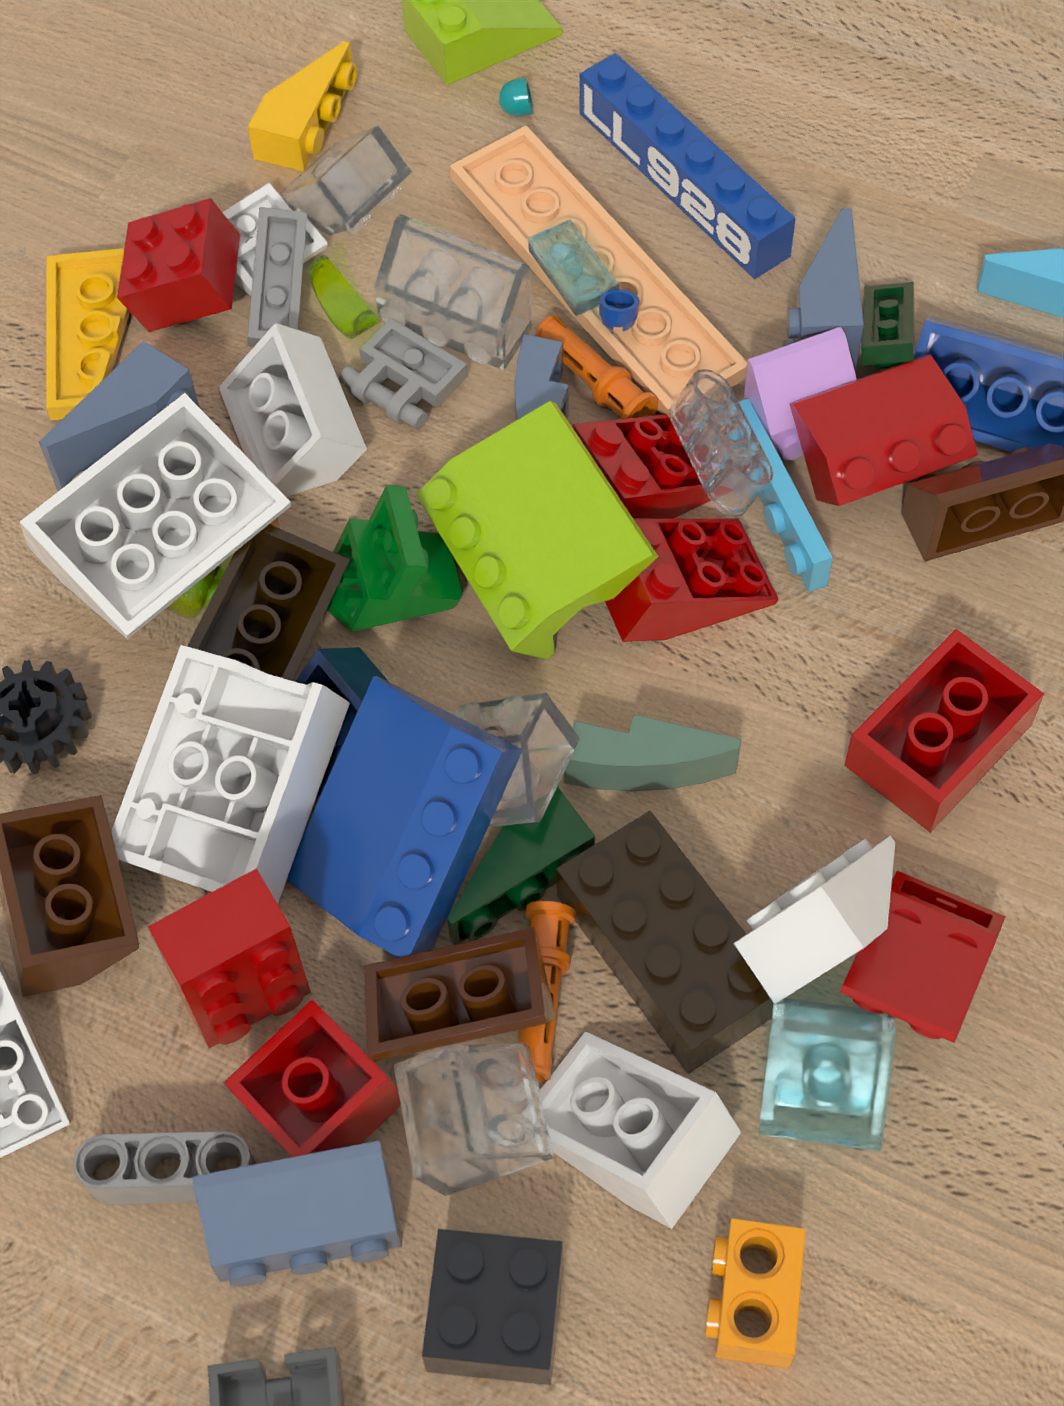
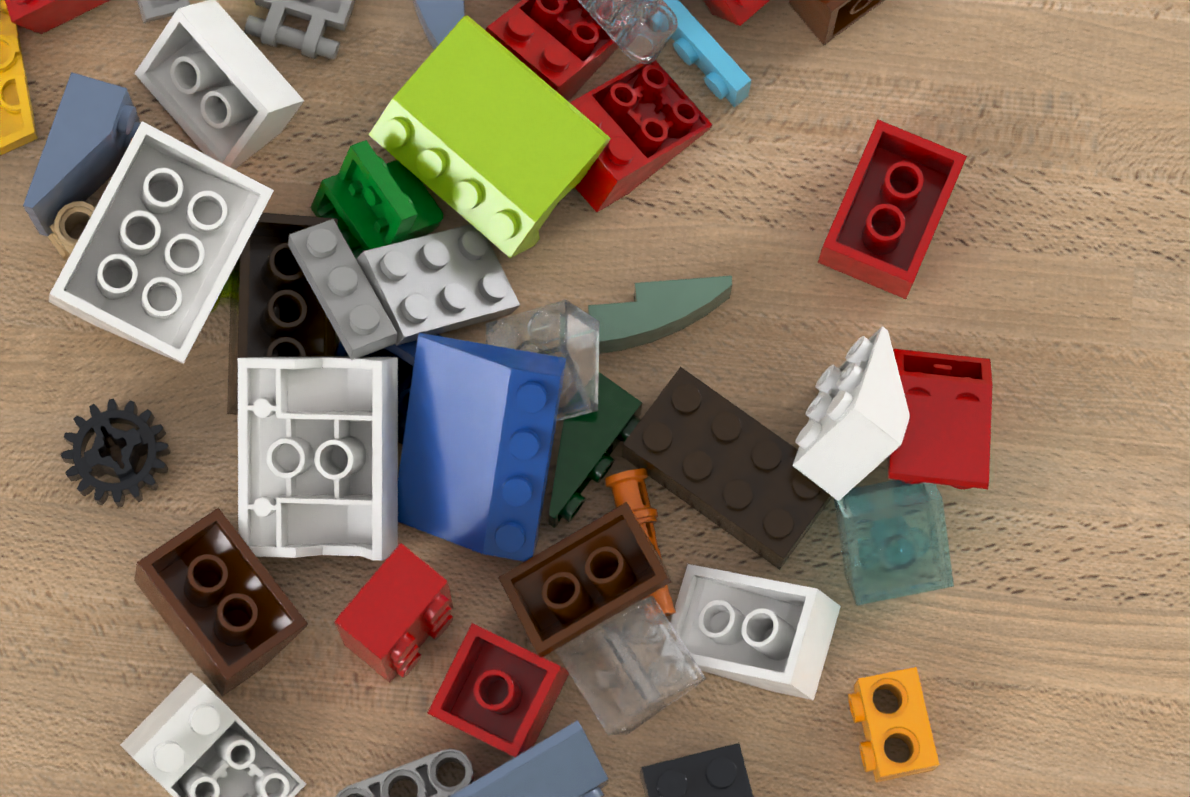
camera: 25 degrees left, 15 degrees up
(320, 618) = (342, 289): none -> light grey plate
(424, 648) = (438, 282): none -> light grey plate

